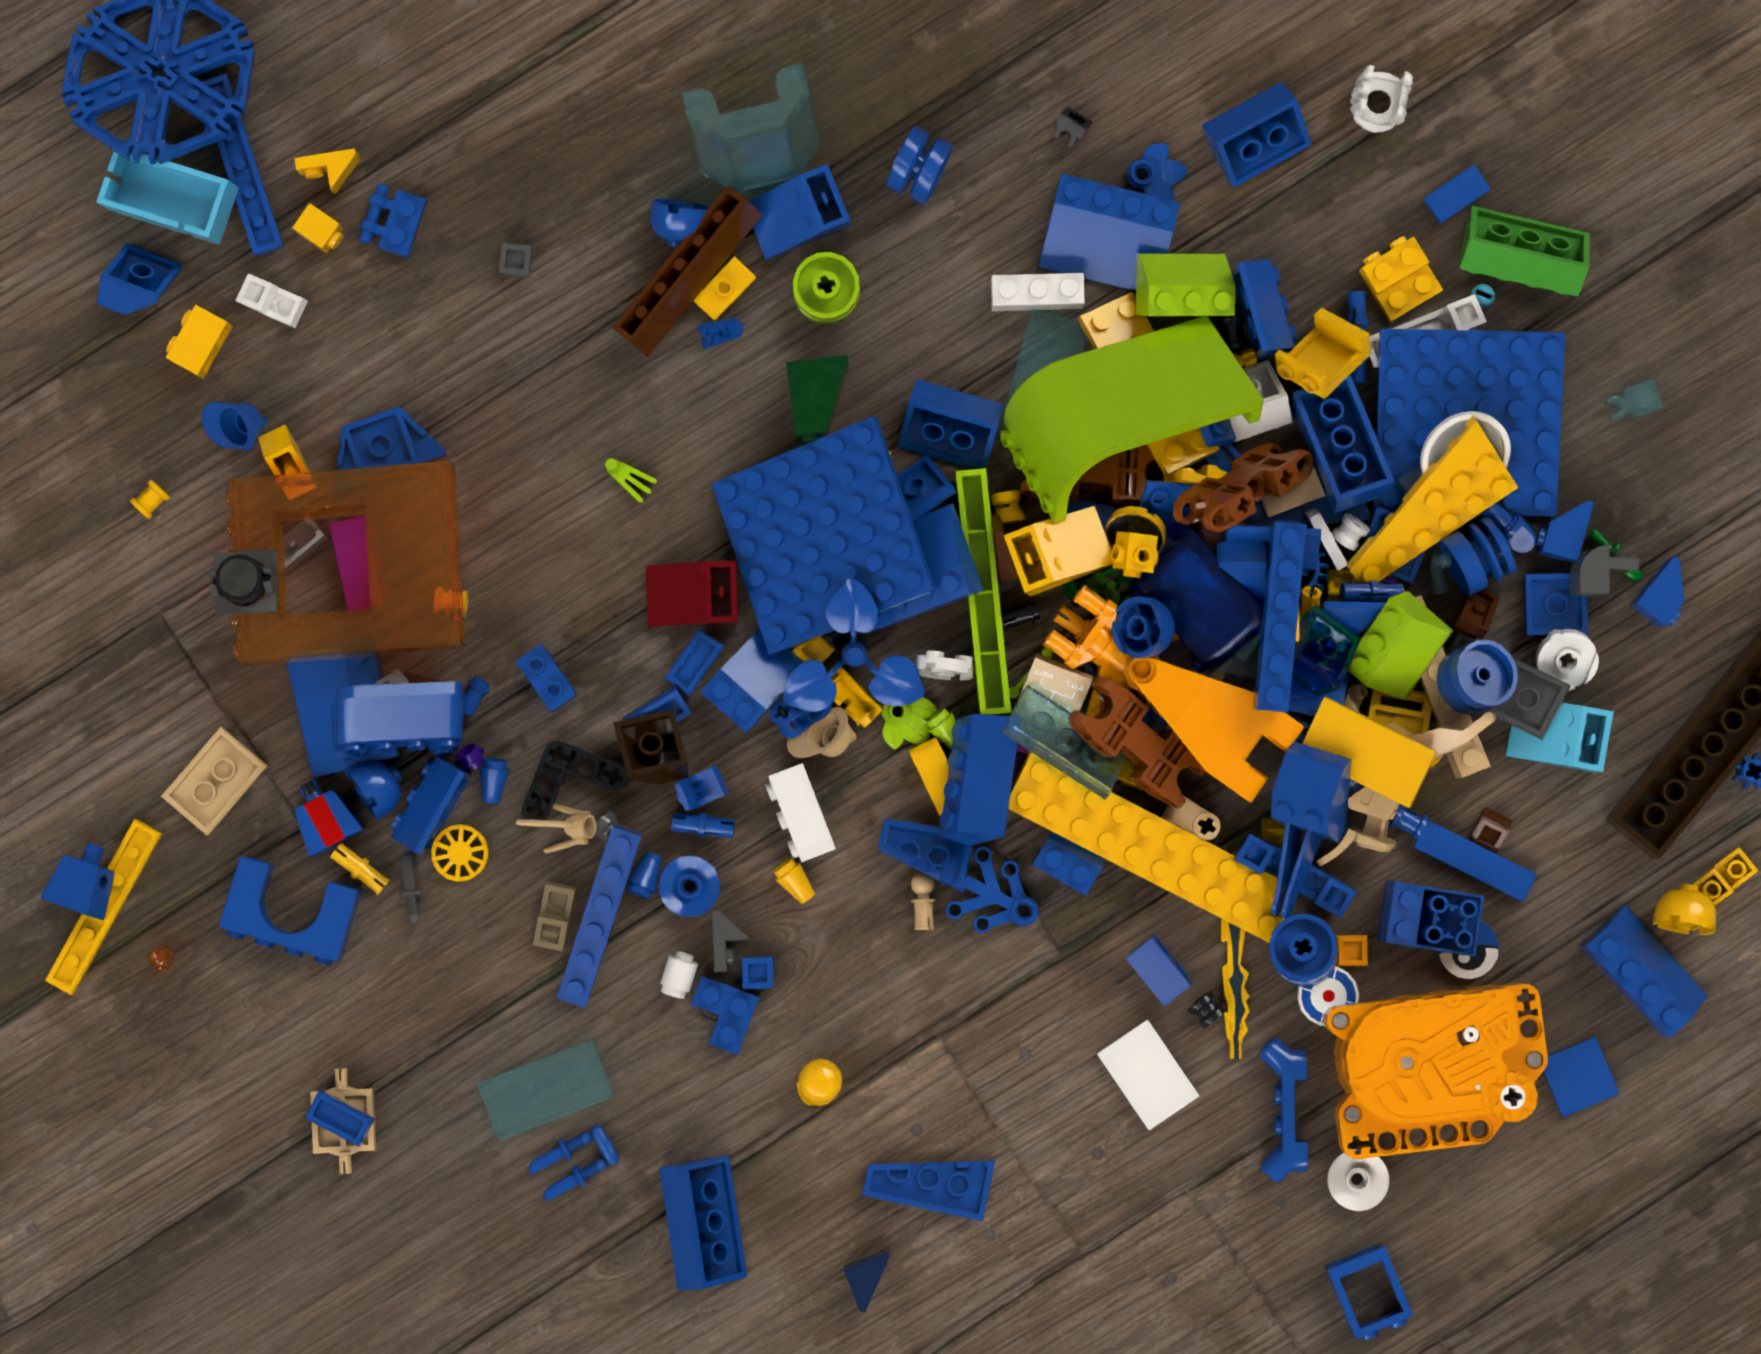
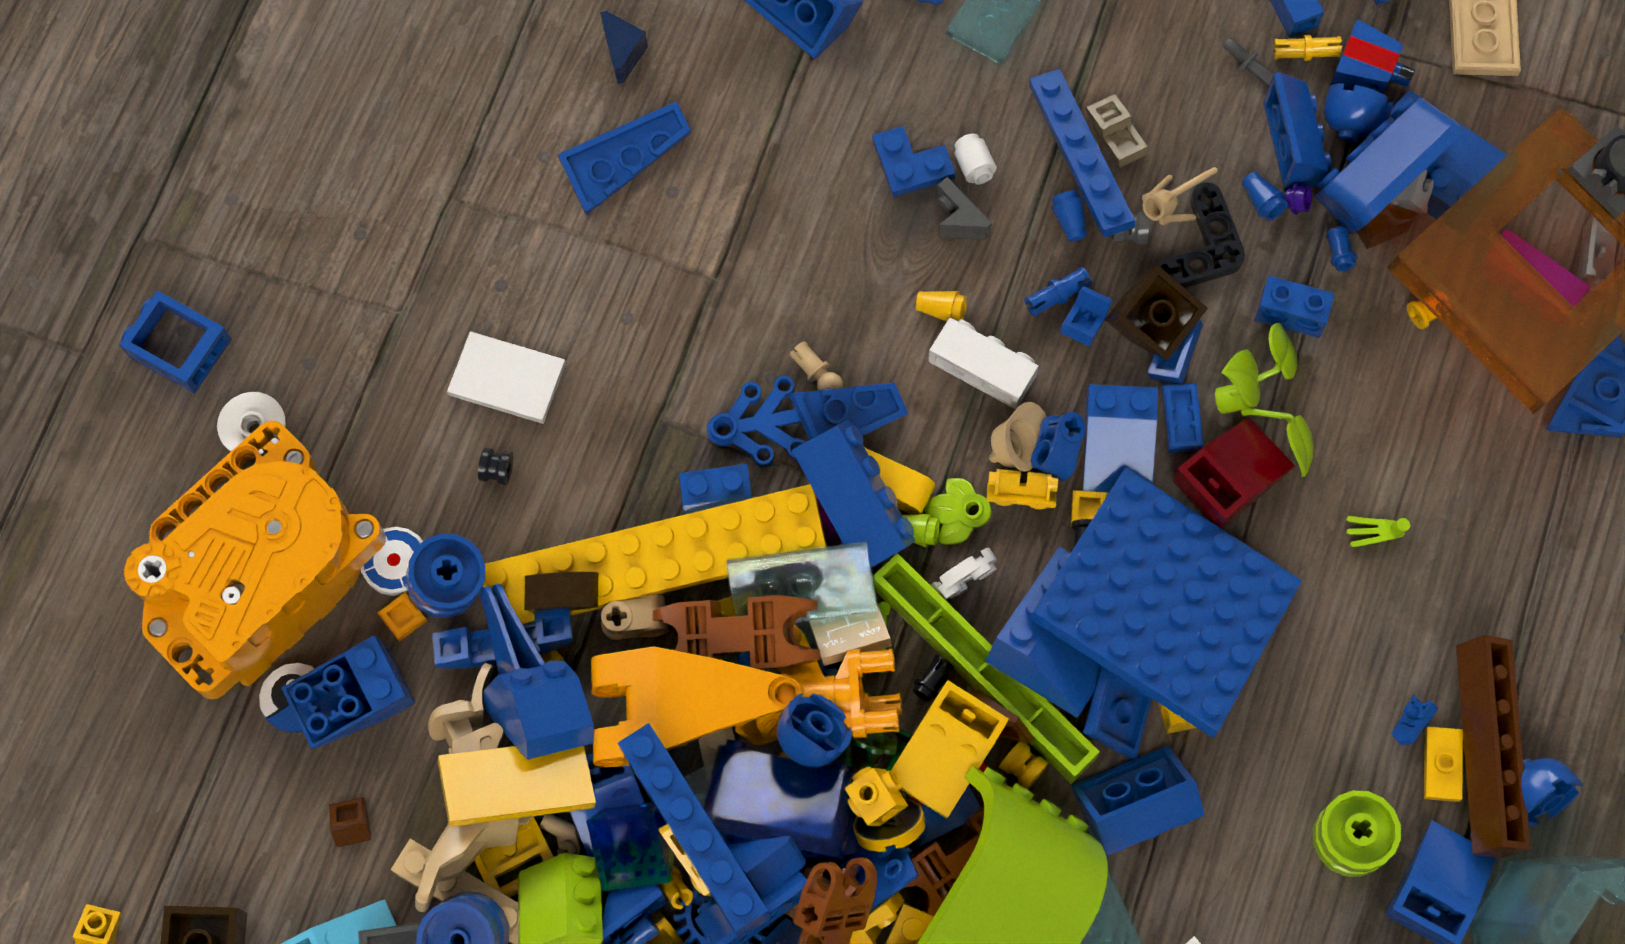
camera: 145 degrees right, 15 degrees down
(459, 853) = (1238, 121): yellow wheel -> none
(642, 644) = (1246, 392): none -> lime plant
(673, 891) = (1031, 220): blue dish -> none
(757, 972) = (910, 210): blue plate -> none
(815, 394) = (1280, 721): dark green slope -> none
(819, 1082) = (785, 163): yellow helmet -> none
(853, 610) = (1087, 545): blue plant -> none
(1159, 969) = (563, 468): blue hinge -> none
(1233, 871) = (561, 591): none -> dark brown slope
(1235, 994) = (478, 500): yellow sword -> none
(1289, 1065) = (382, 472): blue plate -> none
(1409, 821) = (426, 768): blue bush -> none
(1475, 861) = (344, 781): blue tile -> none
(1579, 1077) = (110, 662): blue tile -> none
(1644, 972) = (110, 799): blue slope -> none
(1686, 911) = (106, 881): yellow cylinder -> none

